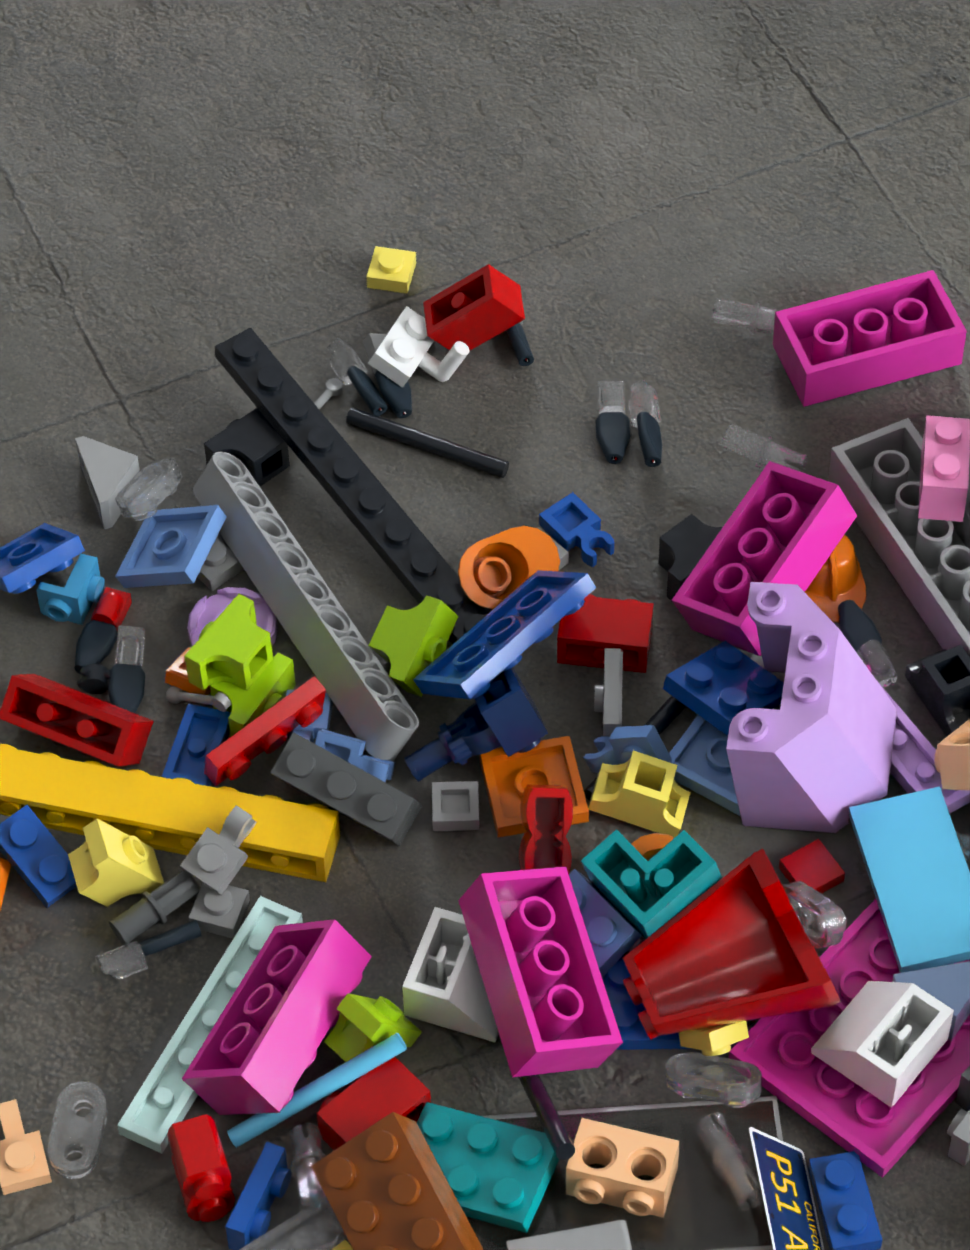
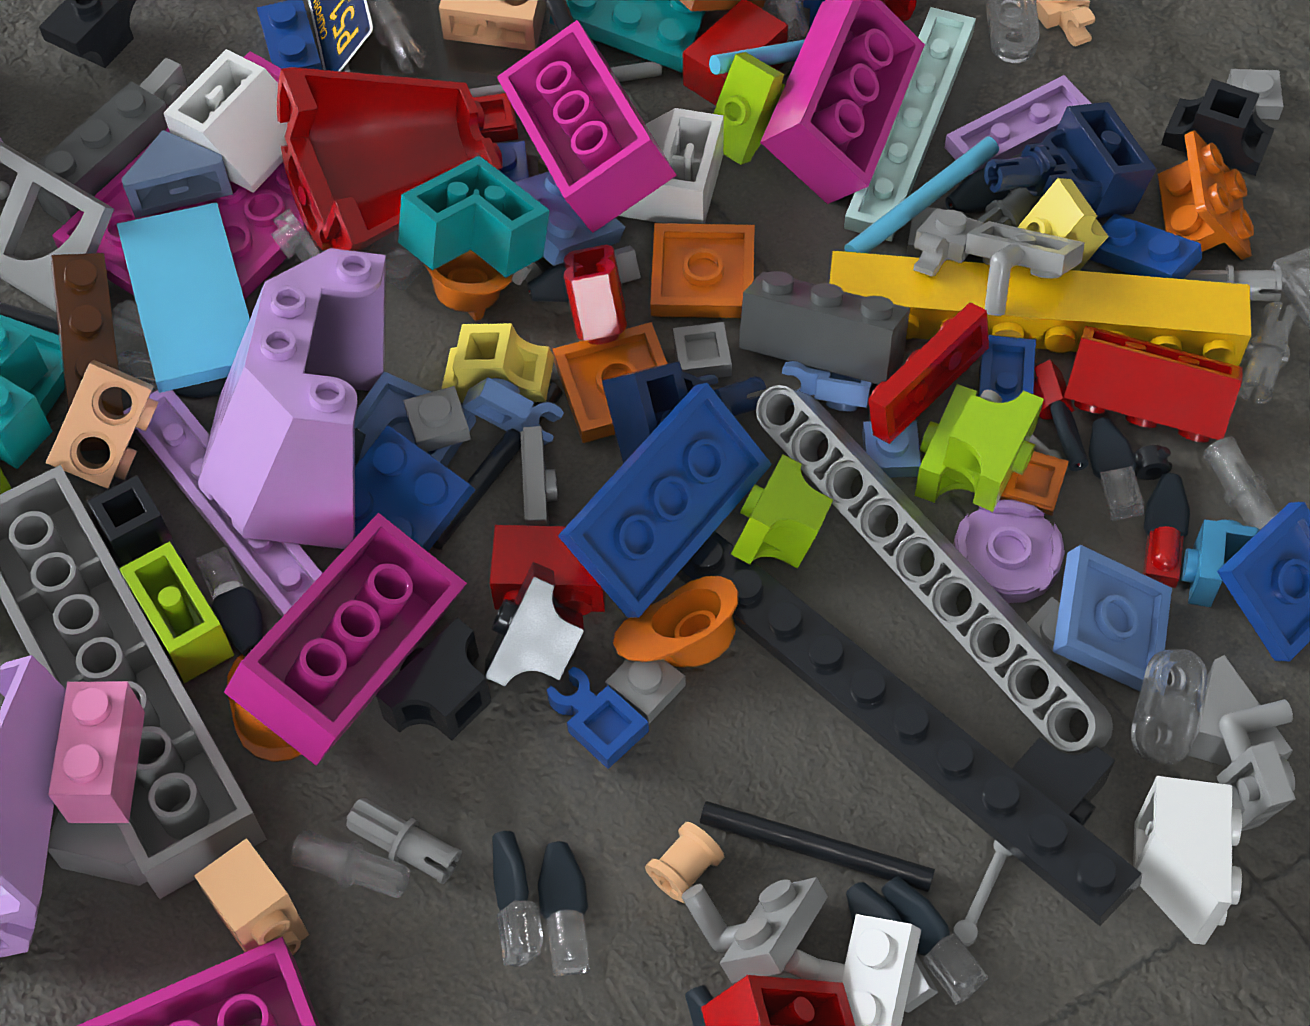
camera: 175 degrees right, 5 degrees up
(22, 626) = (1242, 487): none -> clear pin
(73, 927) = (1091, 150): none -> dark blue brick
(108, 1004) = (1018, 122): none -> lavender plate
(110, 429) = (1258, 775): none -> light grey plate
(155, 818) = (1009, 246): none -> light grey plate
(161, 734) = (1052, 388): none -> piece
(171, 386) = (1186, 853): none -> white slope
(225, 914) = (923, 197): none -> medium azure bar
(434, 875) = (701, 269): none -> orange plate
(470, 372) = (770, 933): none -> light grey plate
(523, 430) = (684, 861): none -> light nougat bush
(623, 569) = (533, 631): none -> brick
(632, 1081) = (499, 118): none -> red tile
(693, 747) = (437, 419): none -> light grey plate
(722, 461) = (403, 839): none -> light grey axle
(829, 406) = (251, 899): none -> light nougat brick
(904, 612) = (177, 612): none -> lime brick

